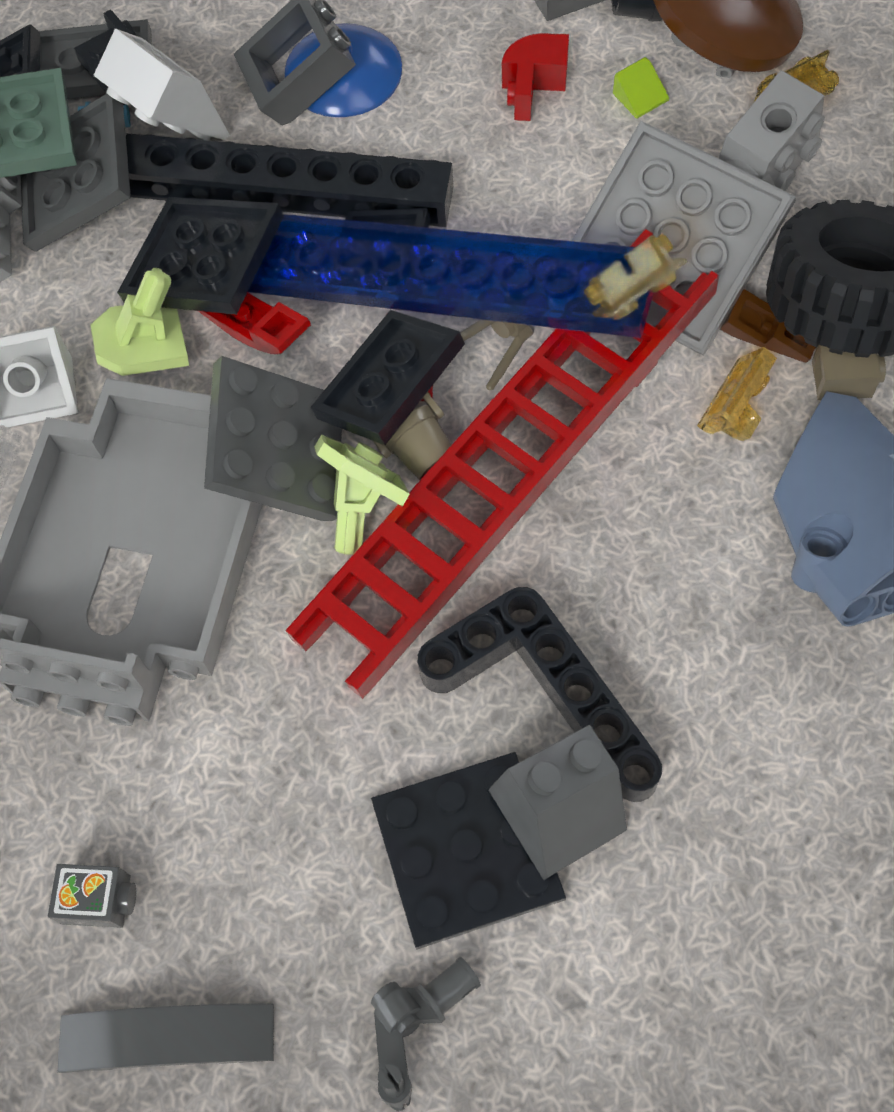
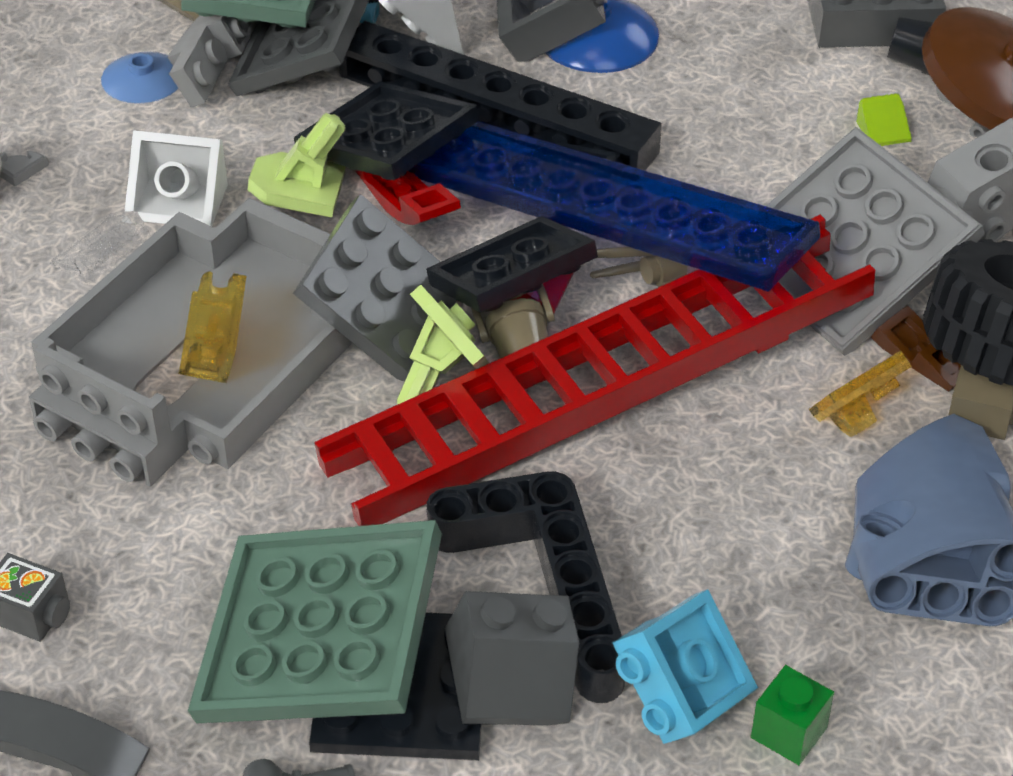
camera: 15 degrees right, 20 degrees down
(137, 538) = (212, 329): none -> clear yellow hinge
(376, 829) = (318, 624): none -> sand green plate
(534, 64) = (783, 73): red brick -> none
(619, 290) = (795, 225): clear yellow hinge -> none
(714, 755) = (684, 668): none -> medium azure plate
(819, 761) = (792, 714): none -> green brick

